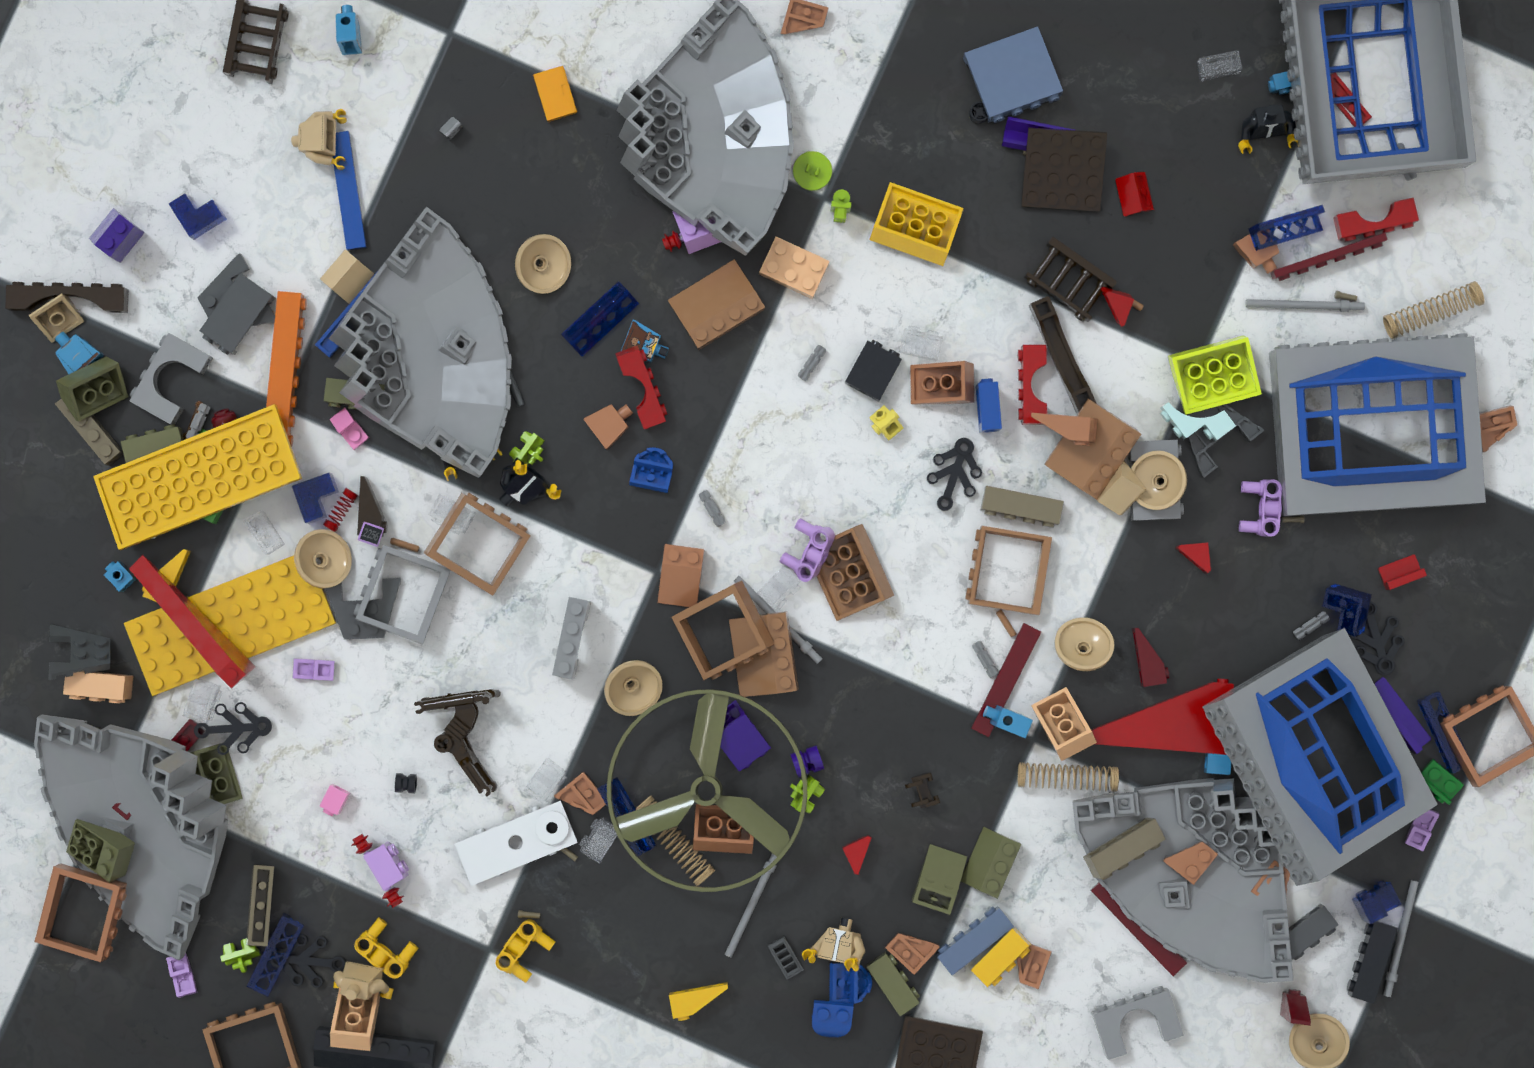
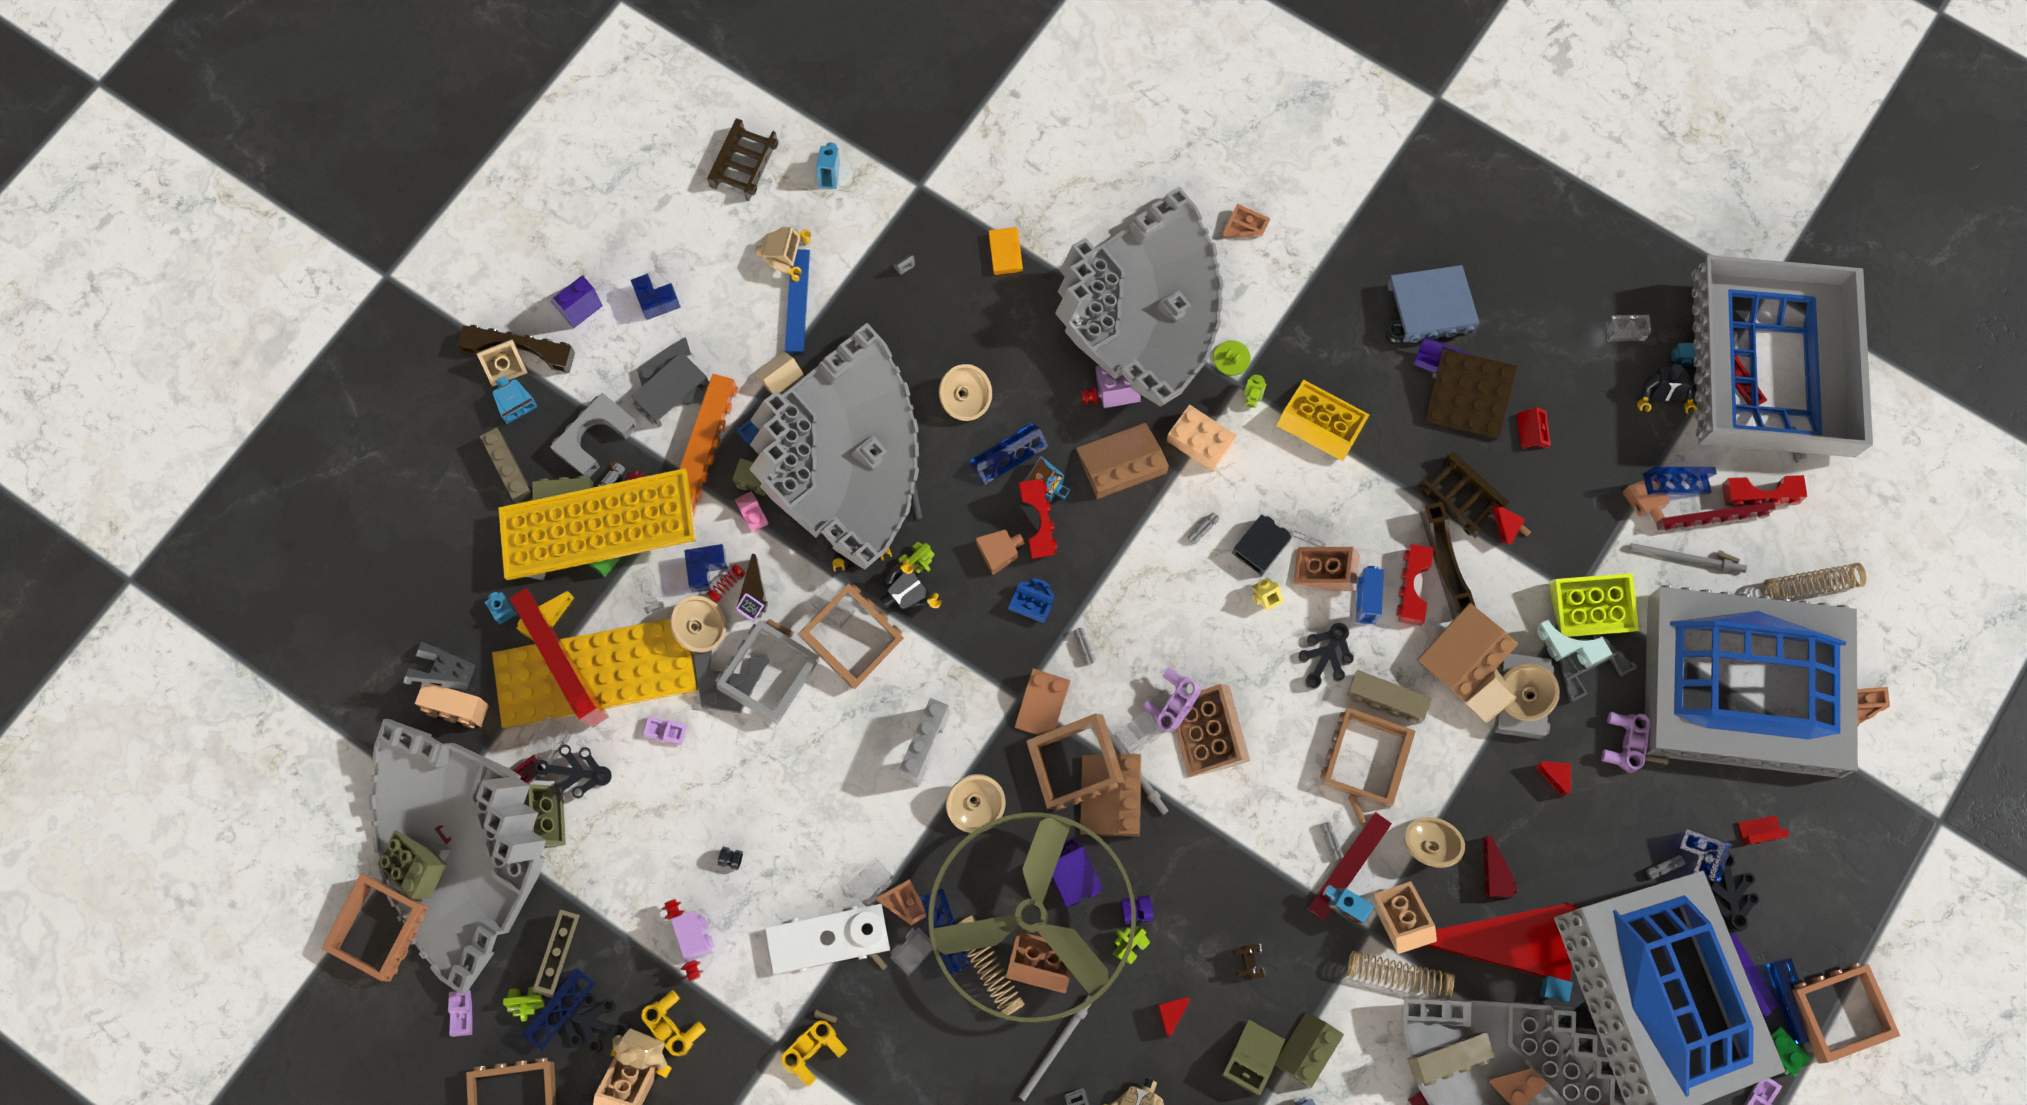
camera: 10 degrees right, 15 degrees down
(92, 388) = (518, 428): olive slope -> none
(334, 800) = (655, 862): bright pink brick -> none
(457, 730) = (795, 812): dark brown piece -> none
(1075, 428) = (1452, 622): nougat slope -> none

